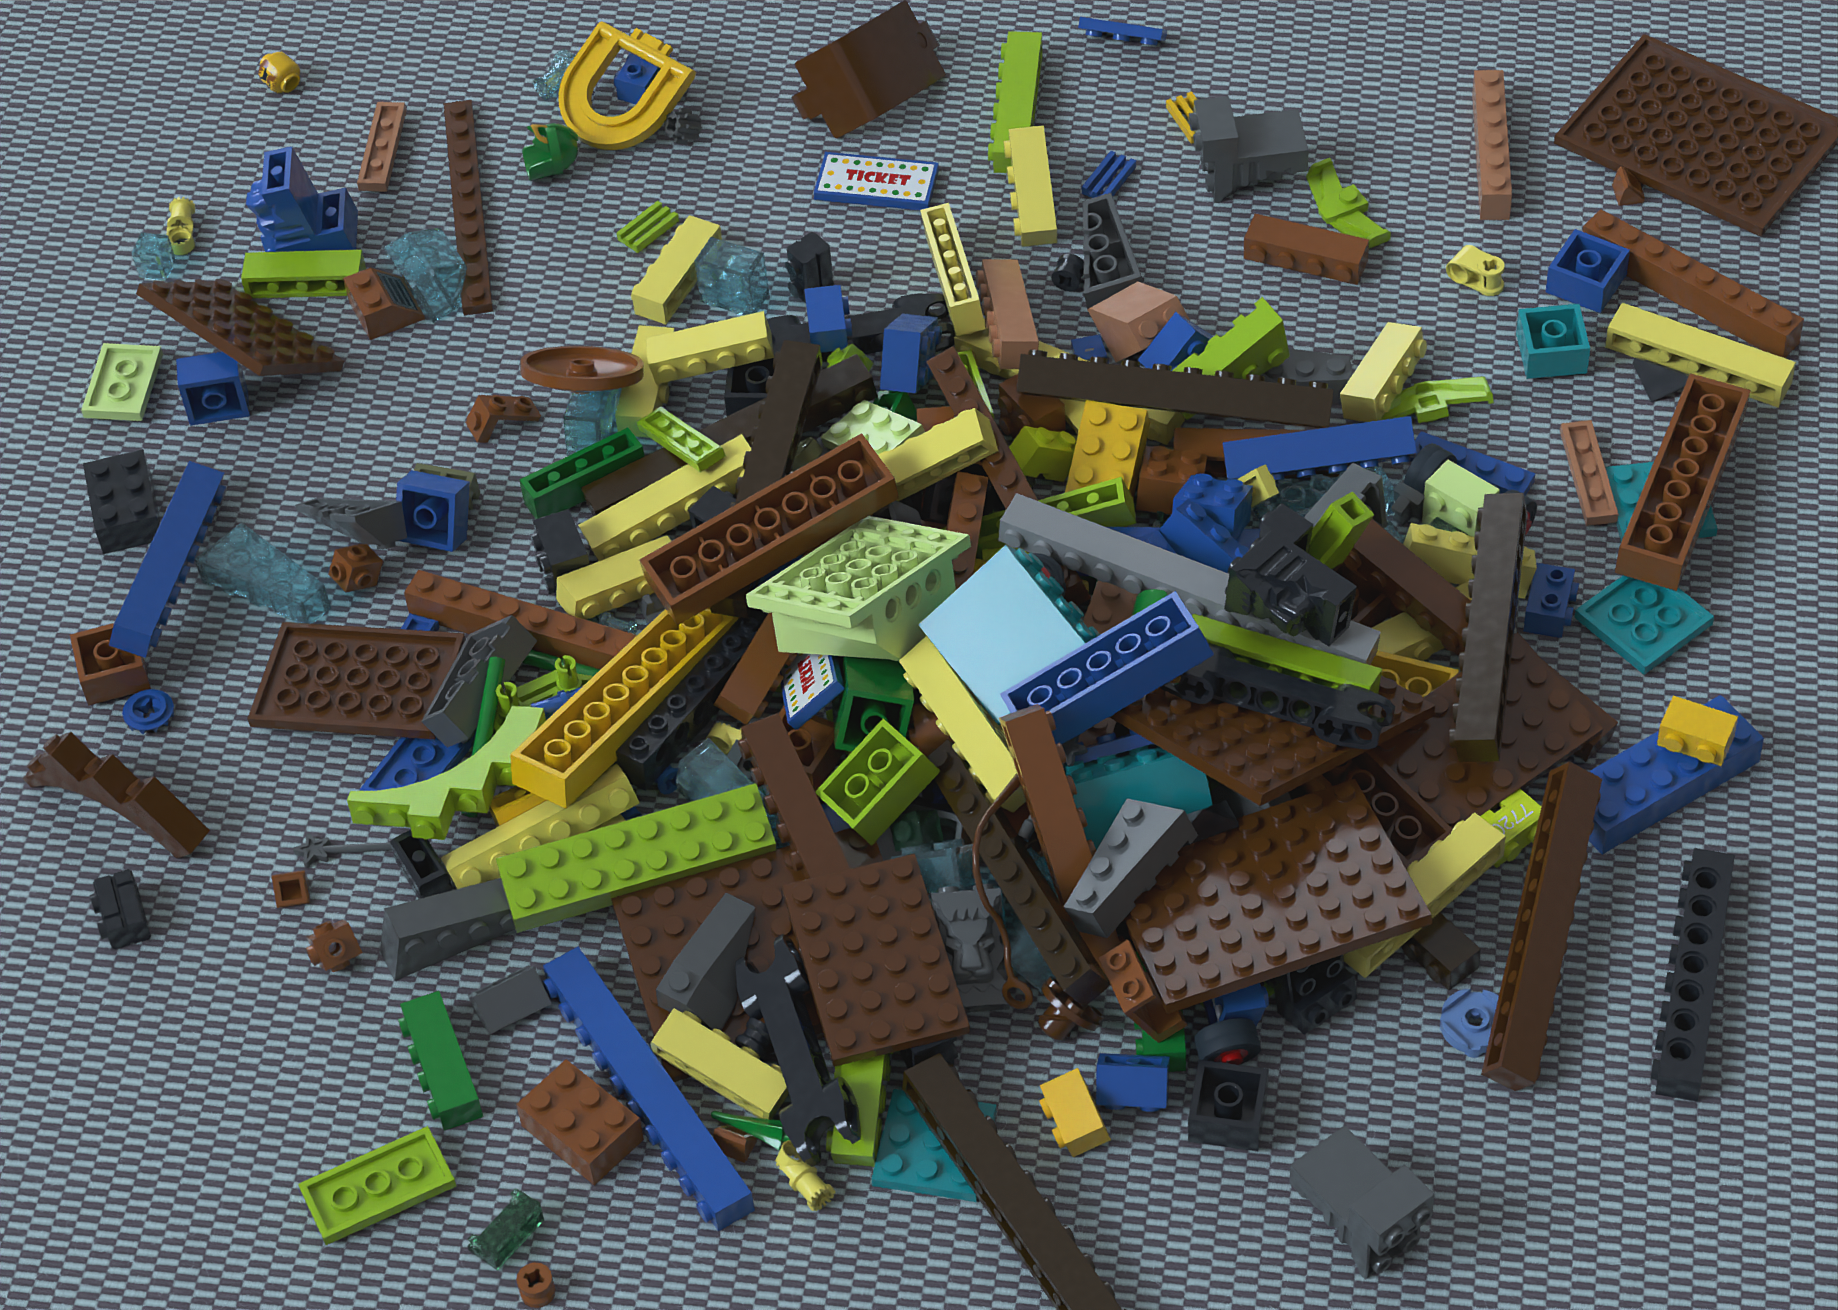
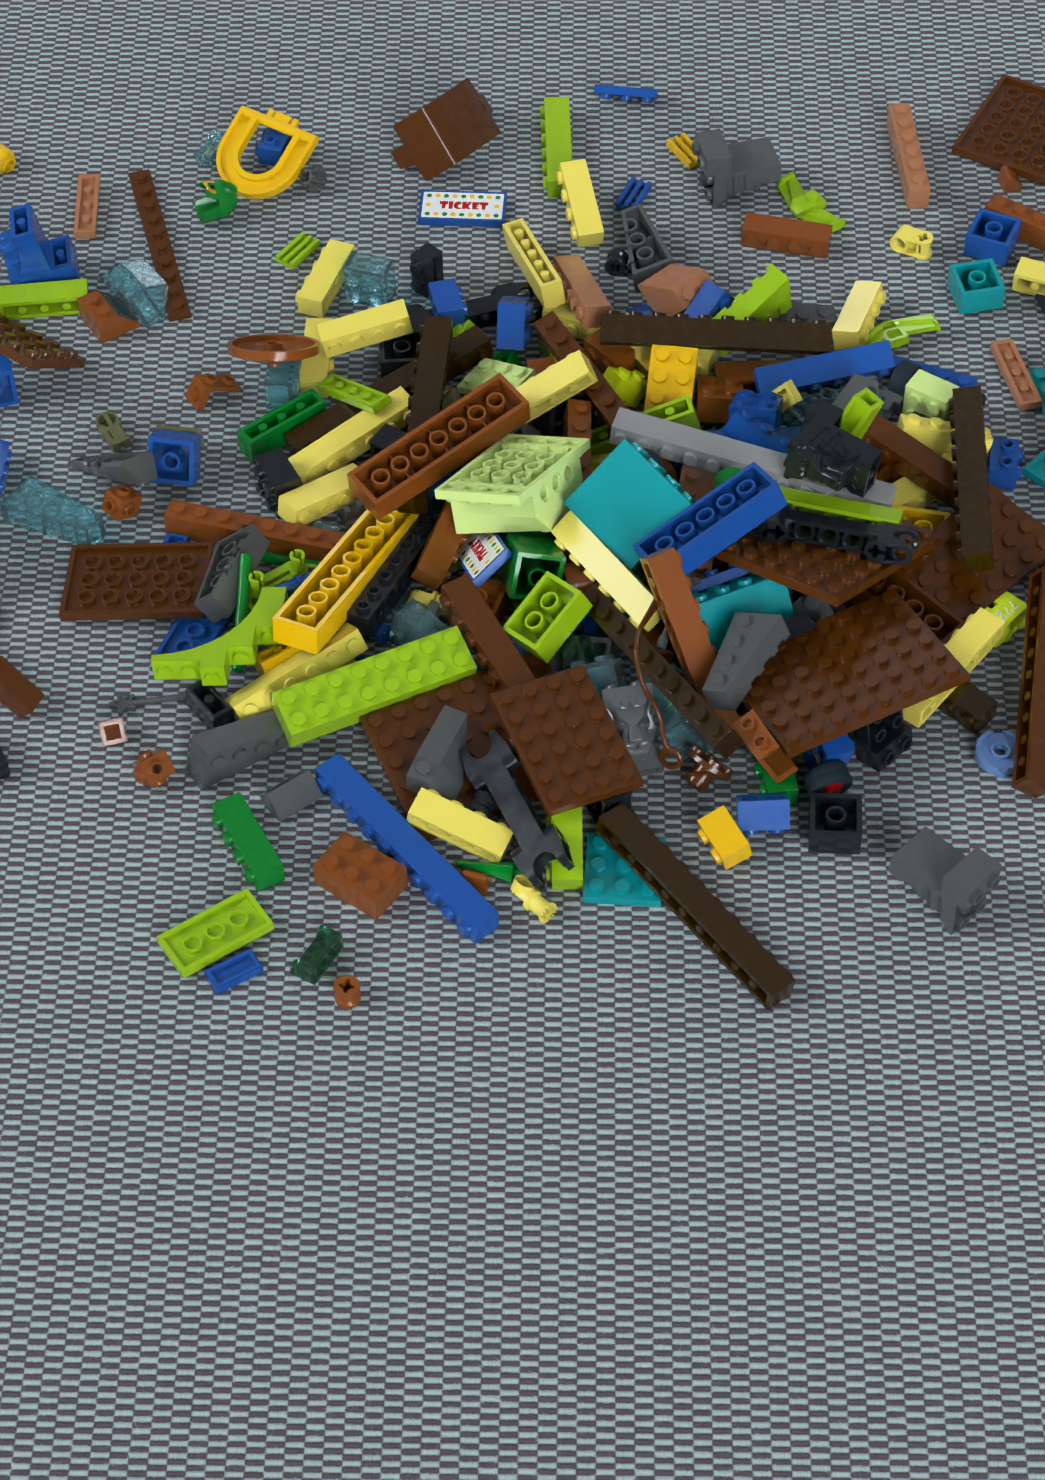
camera: 10 degrees left, 0 degrees up
(363, 468) = (113, 433): none -> olive piece
(393, 1241) = (233, 971): none -> blue tile

